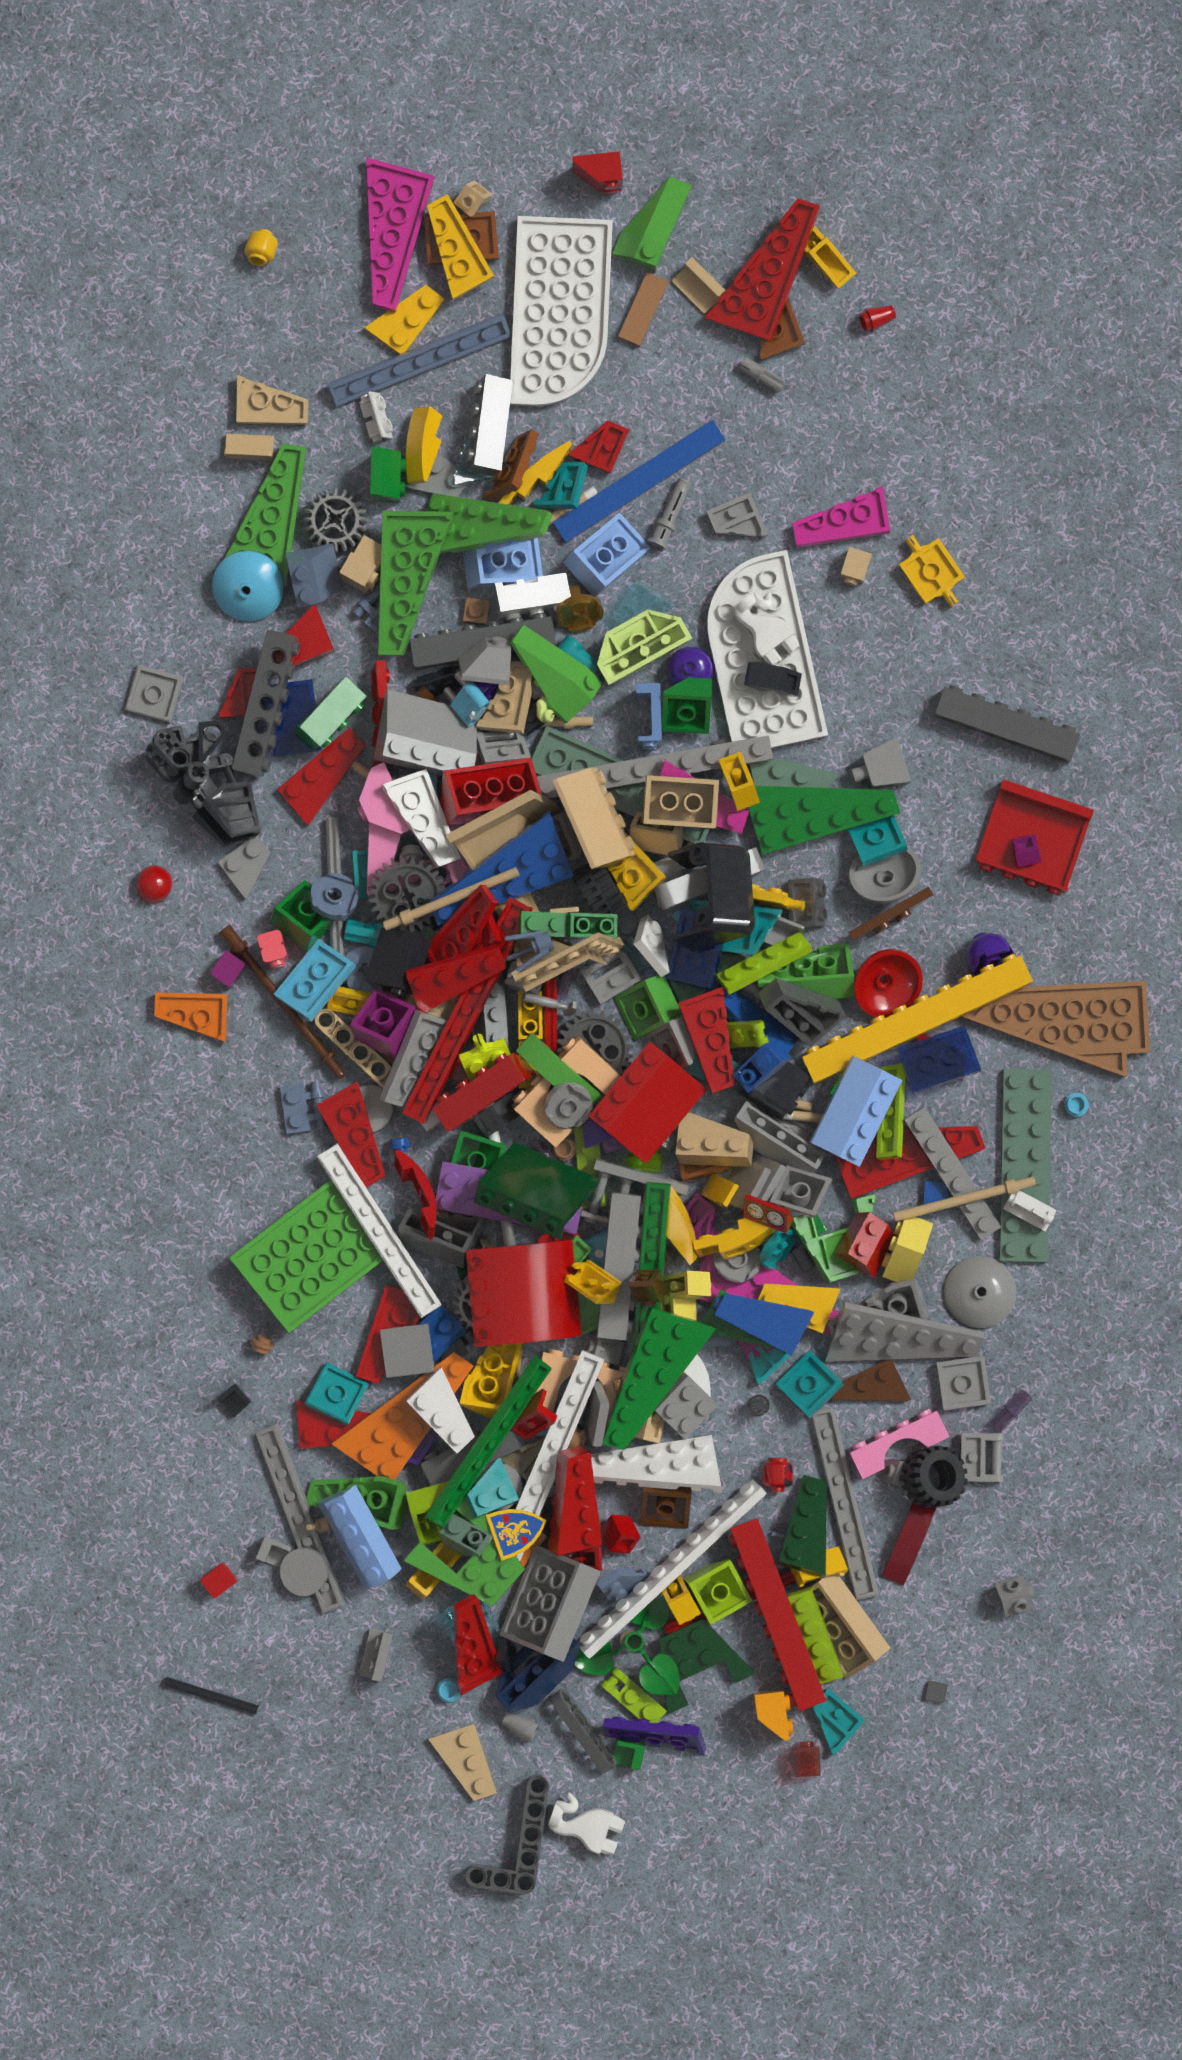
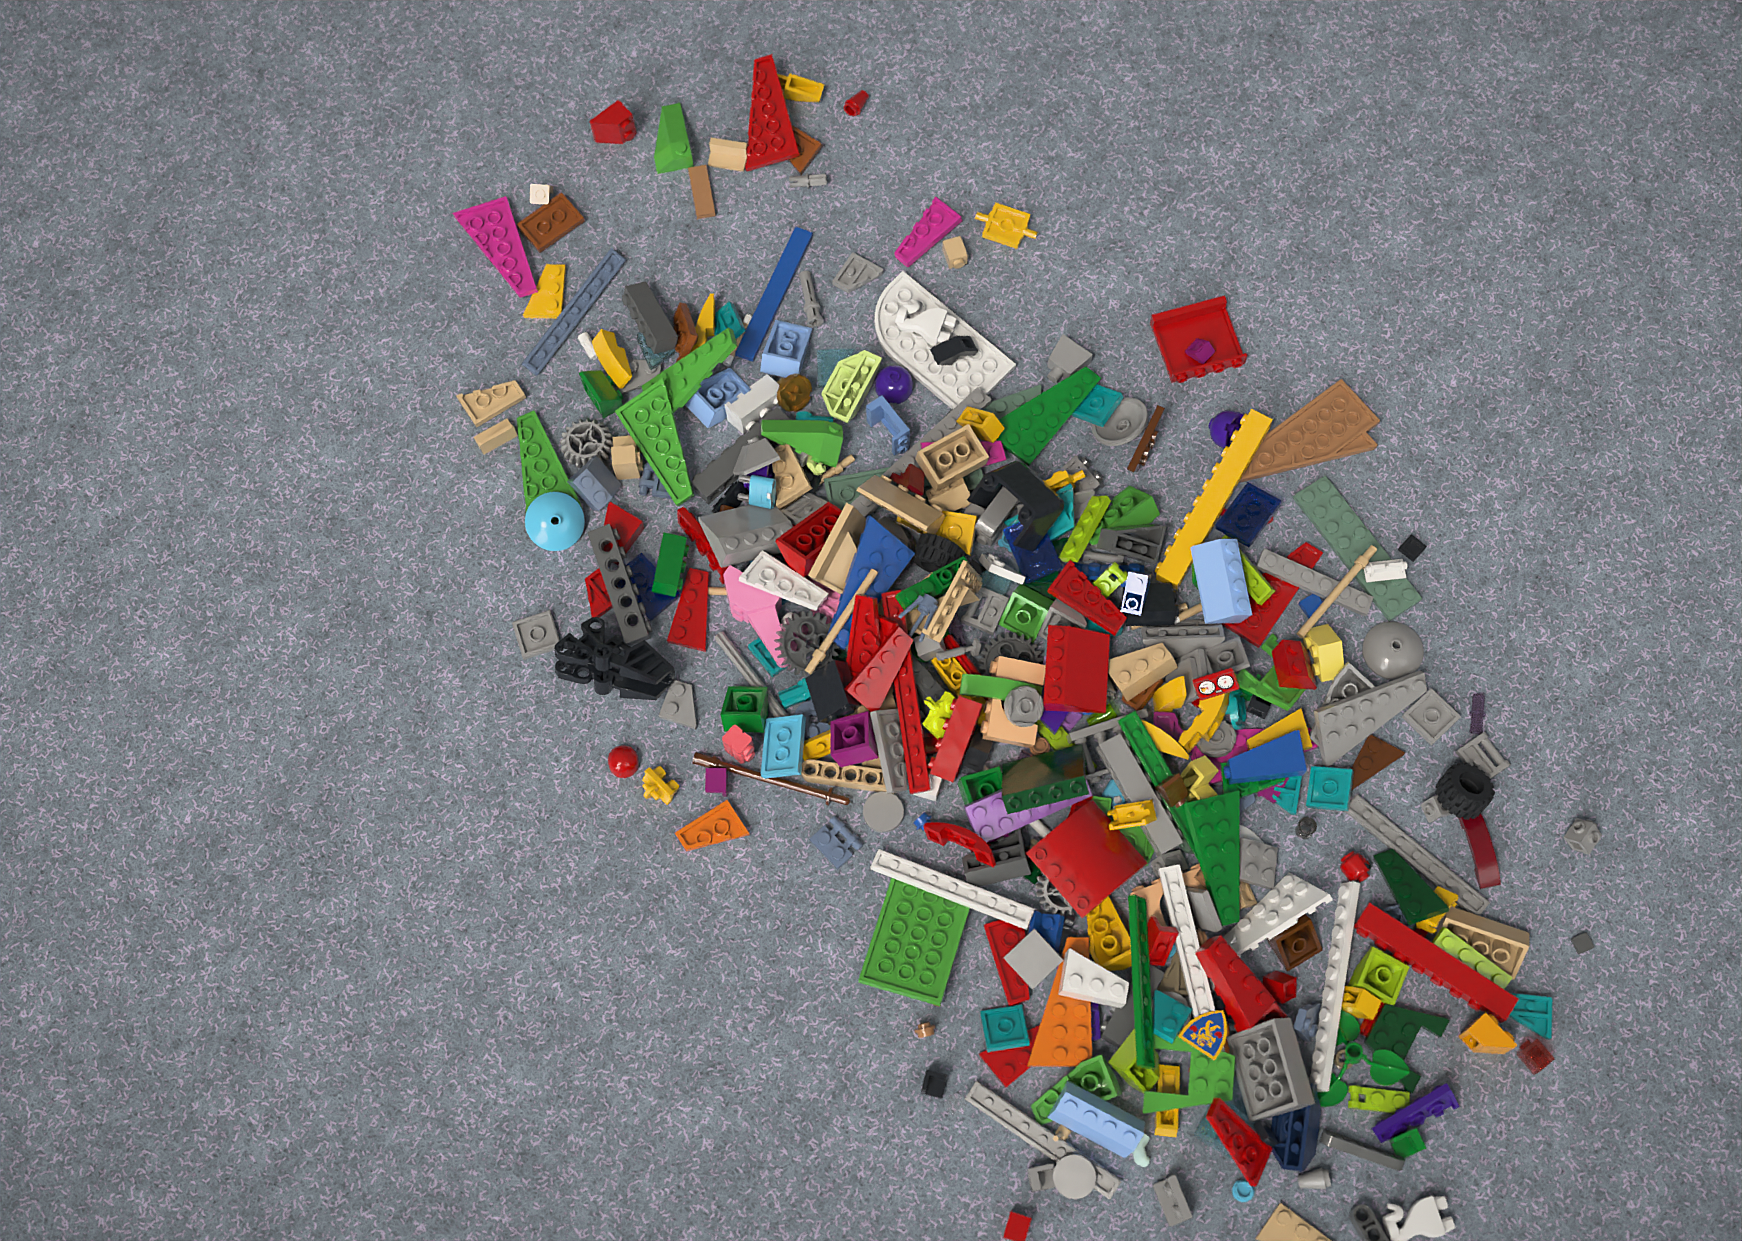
camera: 30 degrees left, 15 degrees down
(167, 934) = (656, 787): none -> yellow hips
(261, 247) = (418, 308): yellow head -> none
(331, 908) = (751, 689): sand blue plate -> none
(352, 1129) = (882, 832): red wing -> none
(374, 406) = (563, 359): white hinge -> none
(378, 1592) = (1139, 1153): none -> light aqua arm
(409, 404) = (586, 342): none -> white piece
(460, 255) = (554, 227): yellow wing -> none
(464, 1537) = (1175, 1064): sand green slope -> none
(476, 611) = (723, 439): medium nougat plate -> none
(559, 307) = (645, 223): white plate -> none
(602, 447) = (734, 287): red wing -> none
(623, 795) = (911, 479): none -> dark red slope
(687, 706) = (912, 400): green slope -> none
(870, 1457) = (1410, 809): bright pink arch -> none
(899, 988) = (1183, 487): red dish -> none
(1007, 725) = (1126, 284): dark grey brick -> none
(1076, 1104) = (1358, 486): medium azure plate -> none
(1080, 1204) = (1412, 548): none -> black tile

